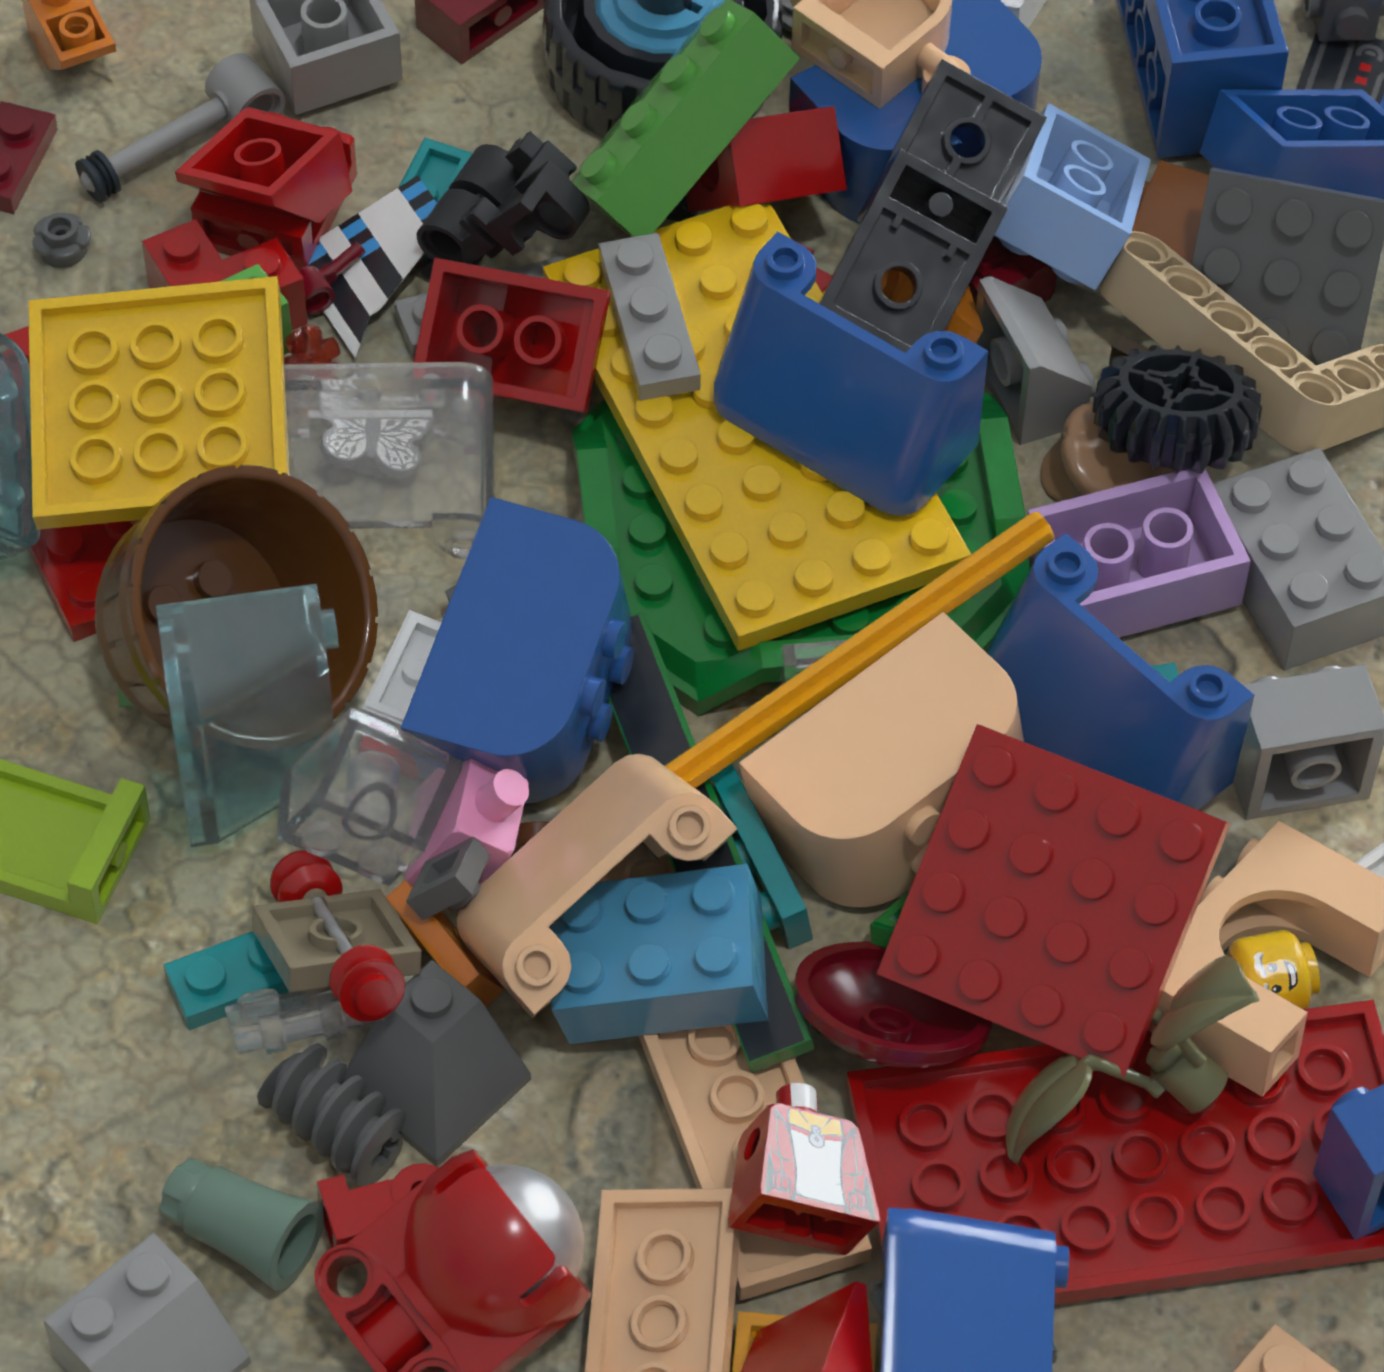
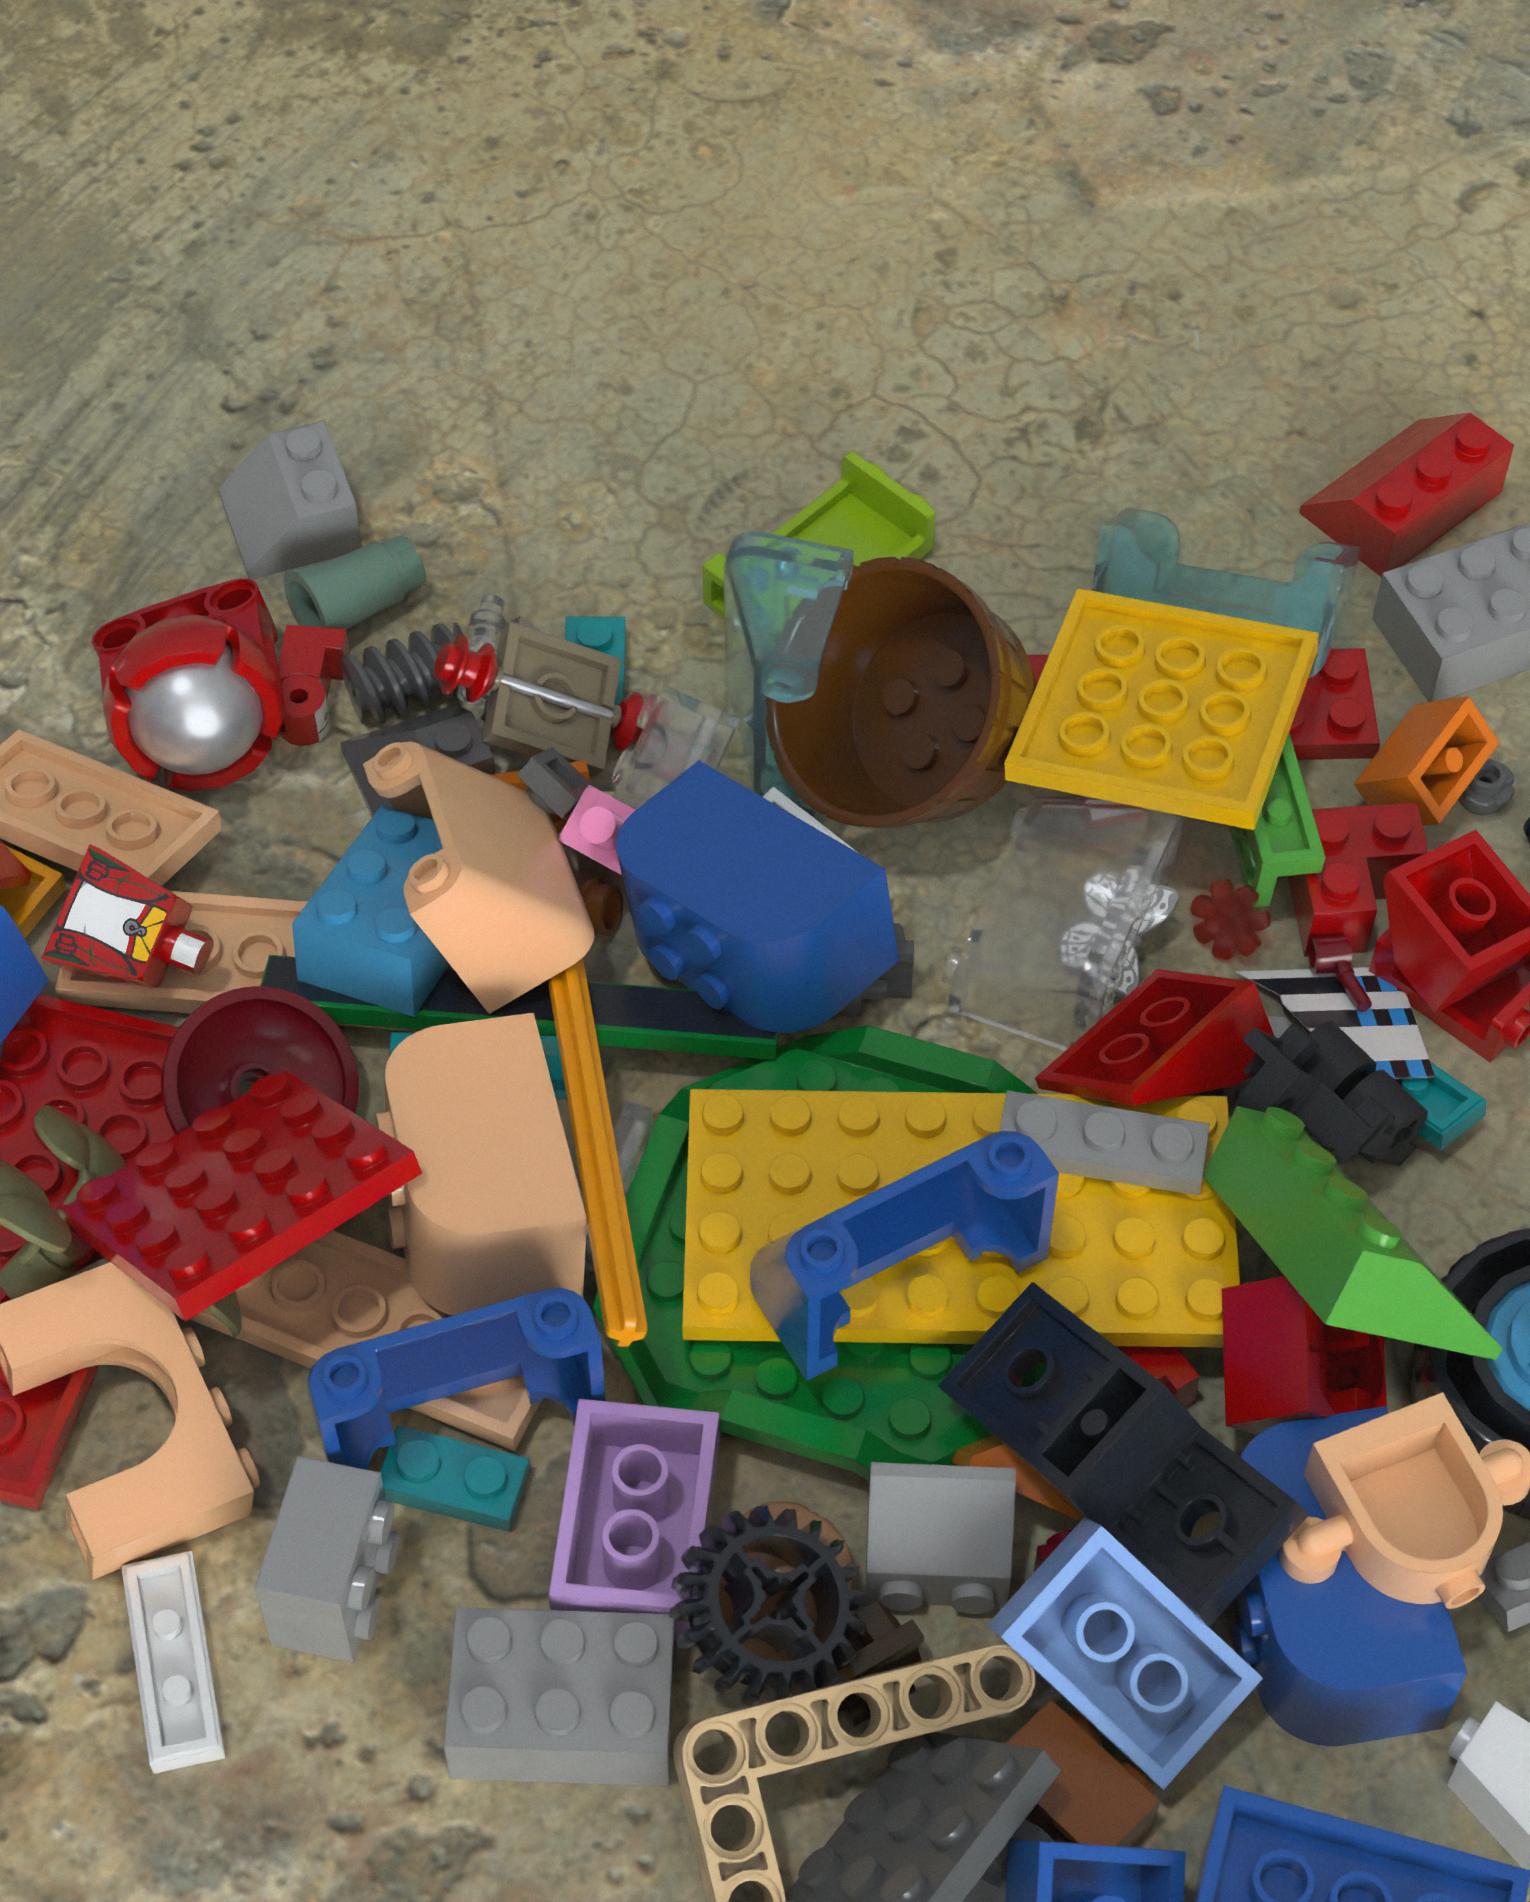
camera: 115 degrees right, 0 degrees up
(71, 259) = (1429, 758): none -> orange brick
(1279, 965) = (111, 1418): yellow head -> none

